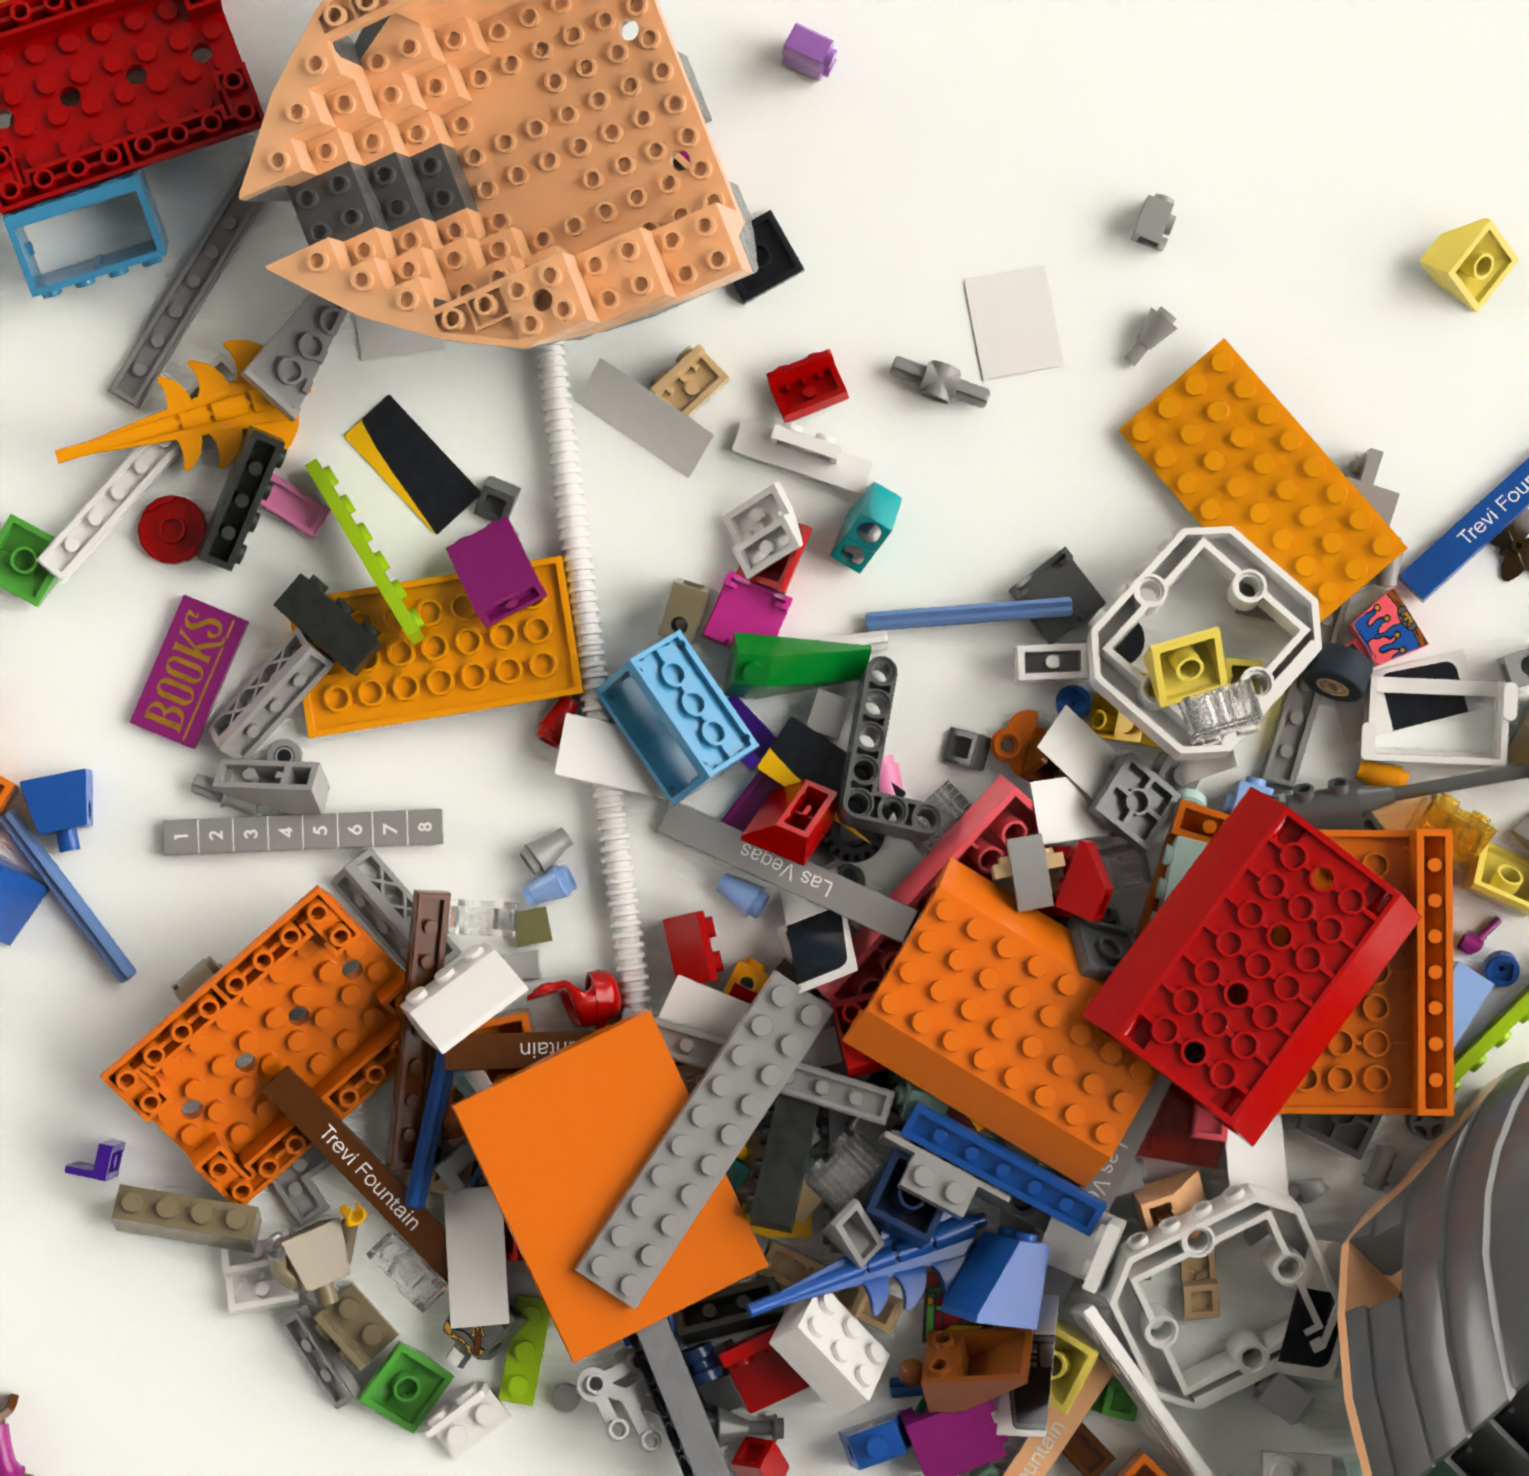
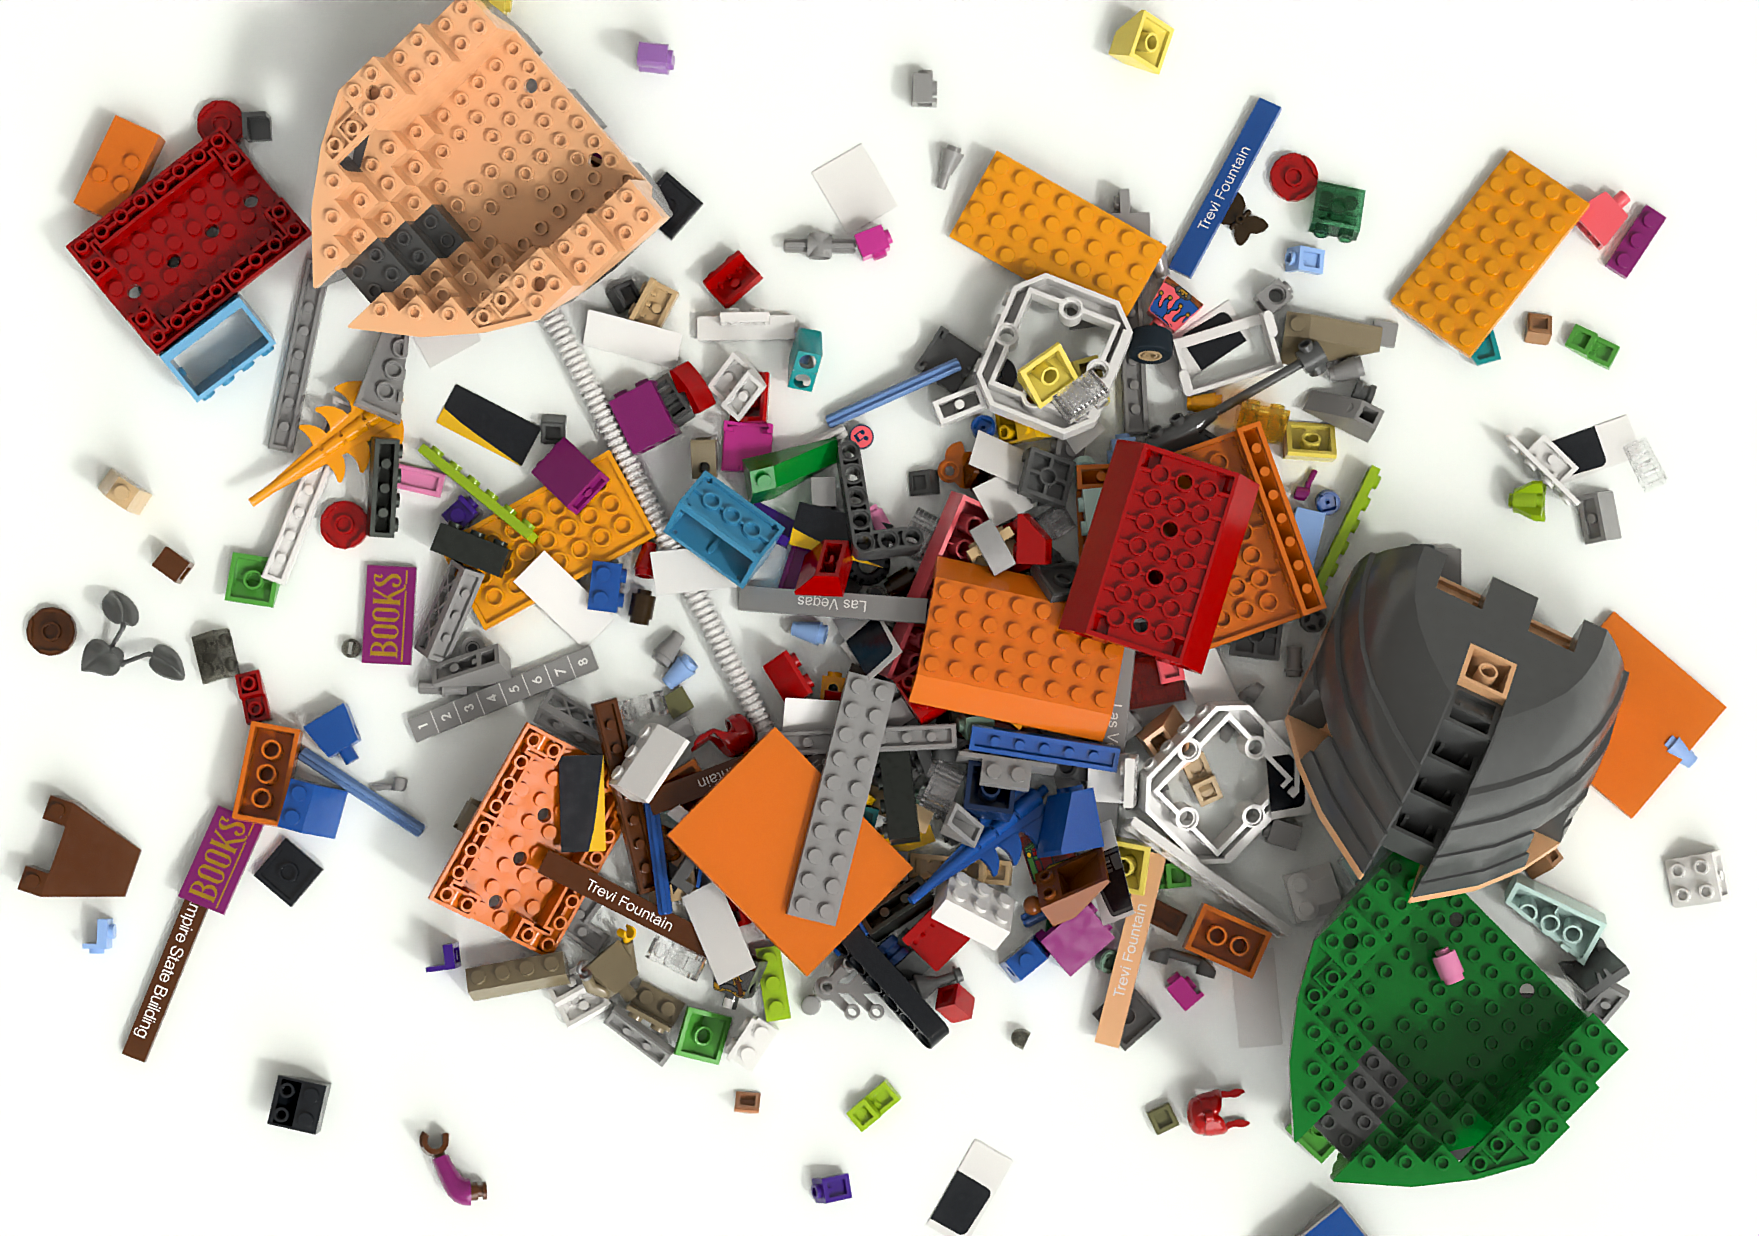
camera: 20 degrees left, 0 degrees up
(121, 903) = (399, 784): none -> light grey hand
(129, 701) = (356, 648): none -> clear smoke hinge
(335, 568) = (462, 511): none -> dark purple bracket
(355, 1018) = (582, 803): none -> black sticker
(429, 734) = (562, 599): none -> white sticker
(491, 737) = (606, 586): none -> blue bracket
(529, 781) = (641, 607): none -> dark brown brick
(622, 527) = (643, 417): none -> magenta panel
(653, 356) = (623, 296): none -> dark grey slope
(674, 546) = (679, 418): none -> dark grey slope
(701, 500) = (691, 382): none -> red slope
(888, 872) = (900, 582): none -> dark brown brick
(906, 656) = (862, 436): none -> coral tile
(1014, 403) = (873, 243): none -> dark pink brick

